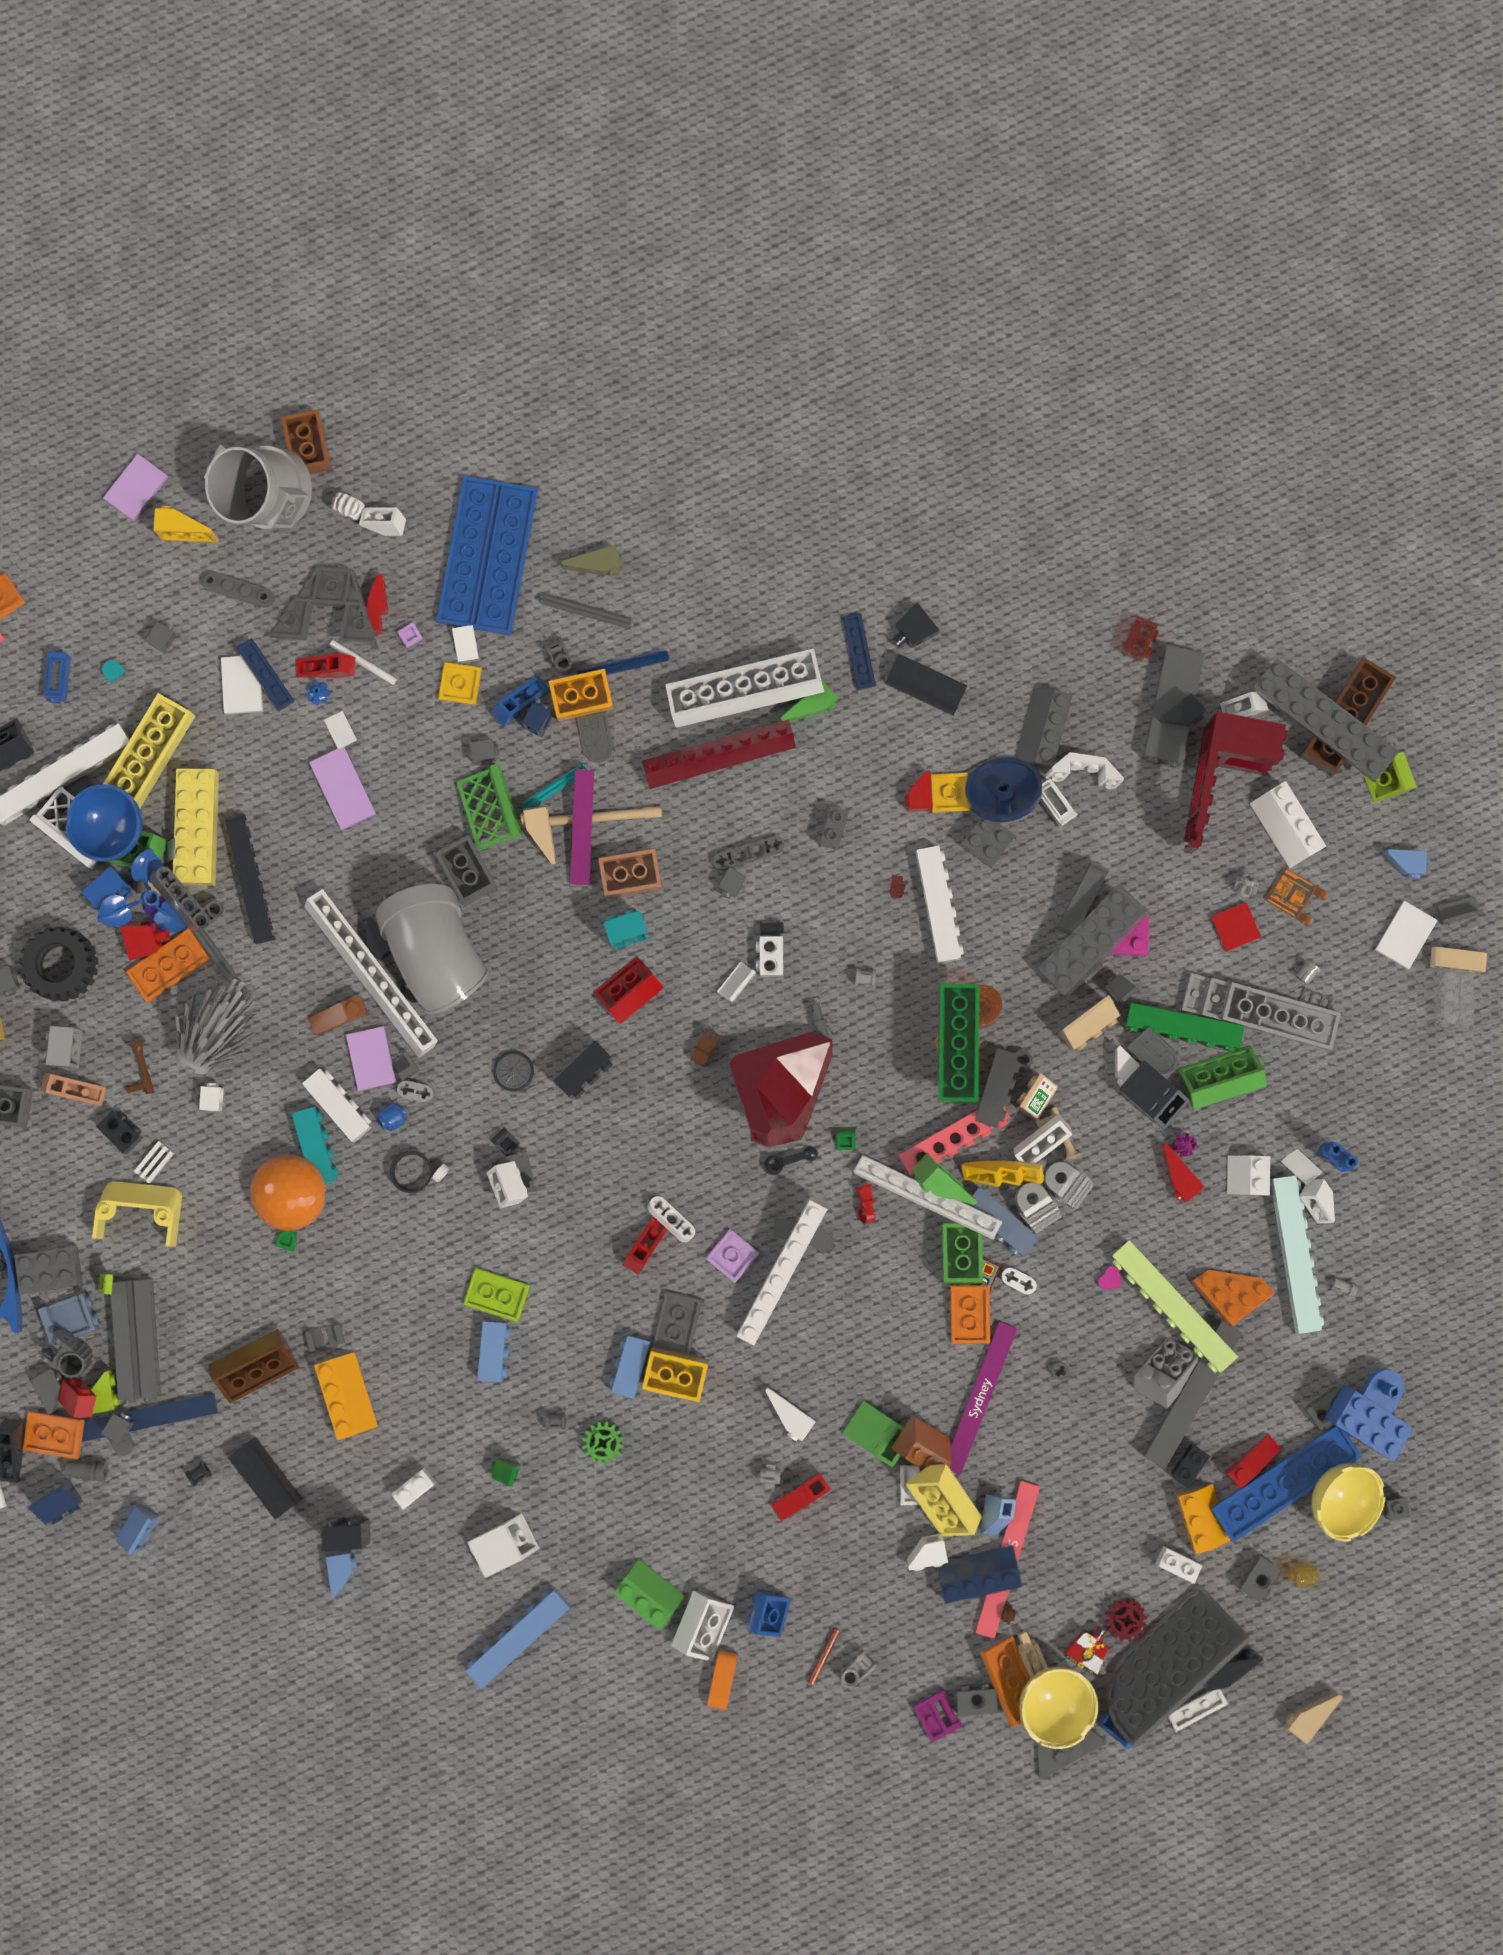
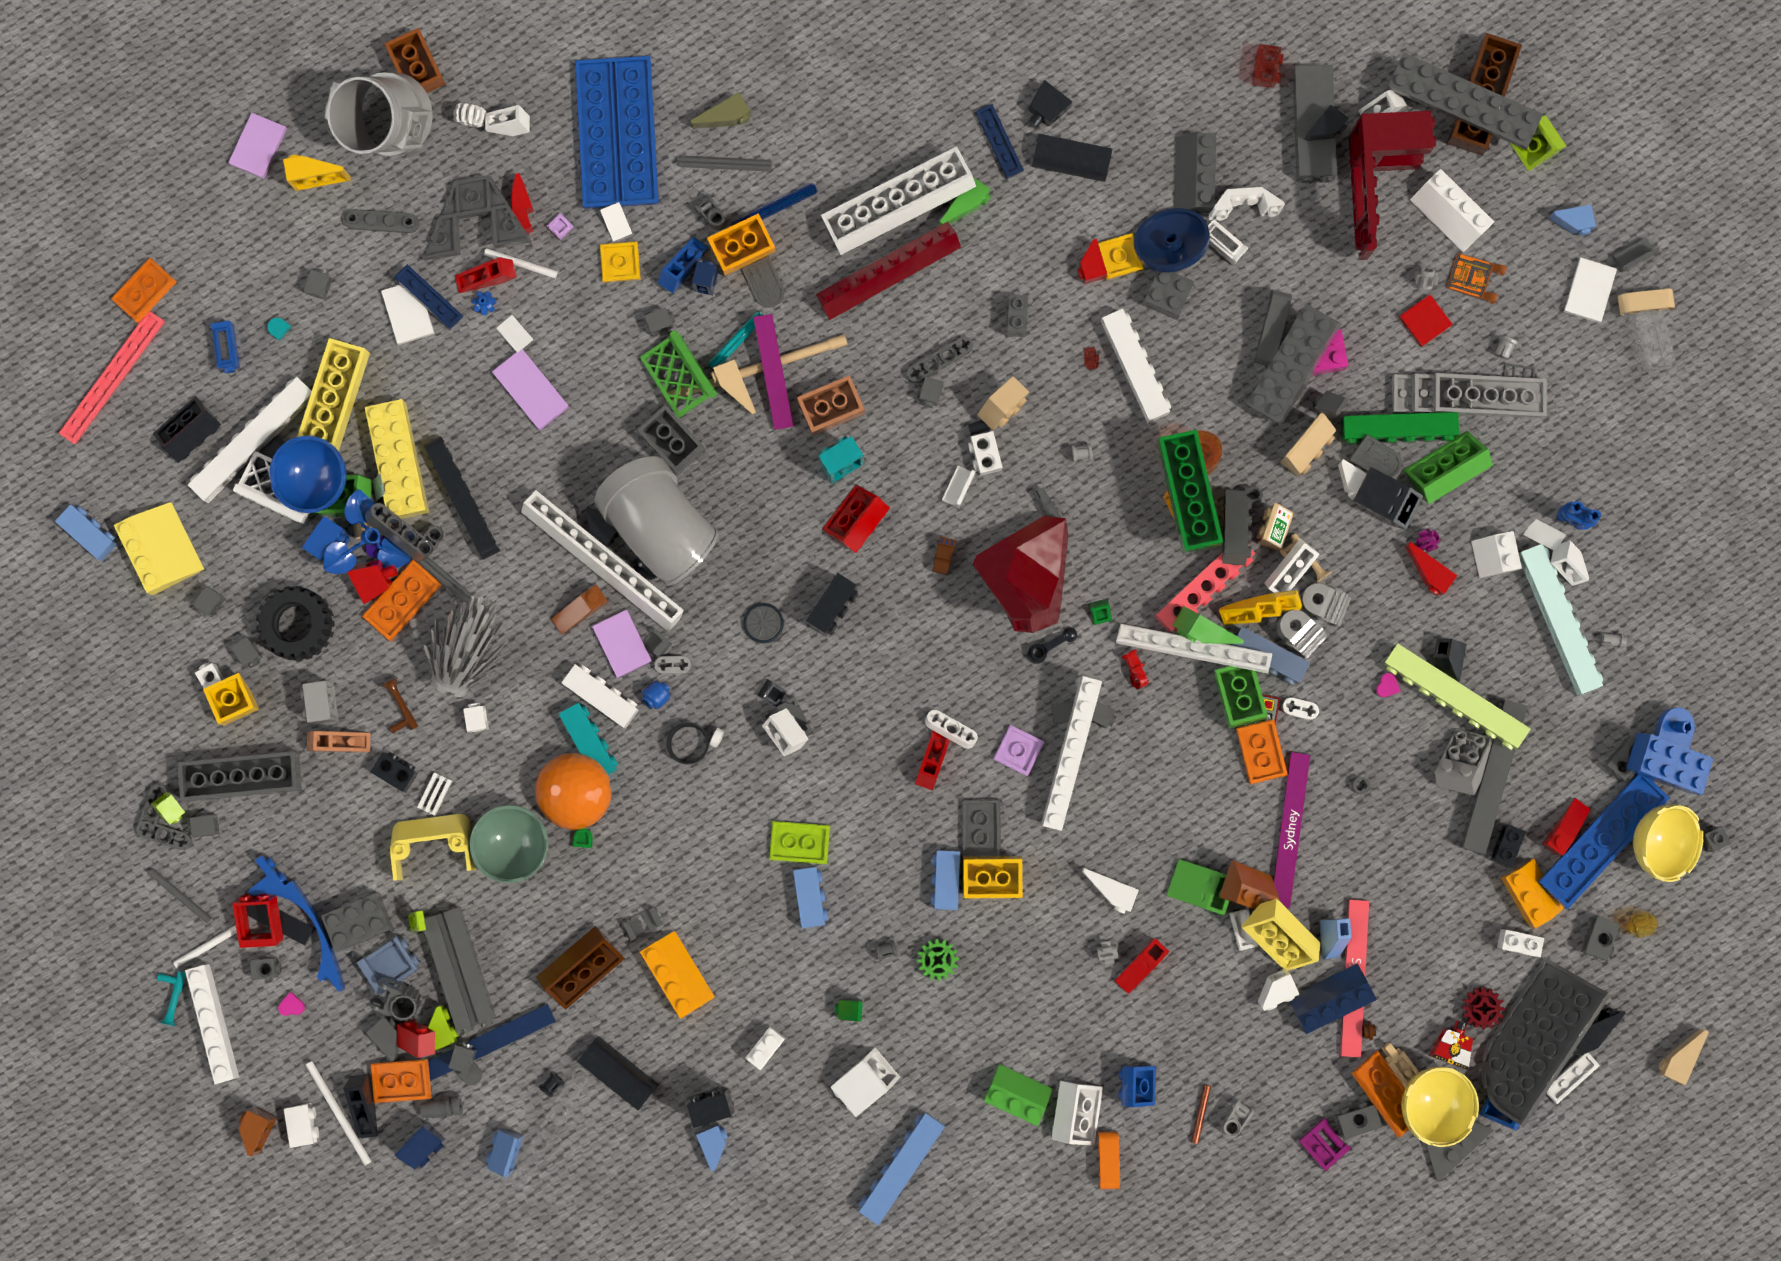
camera: 15 degrees left, 0 degrees up
(212, 1229) = (509, 844): none -> sand green piece
(799, 912) = (1004, 404): none -> tan brick
(1177, 1266) = (1450, 656): none -> black slope
(1232, 1294) = (1508, 672): orange plate -> none

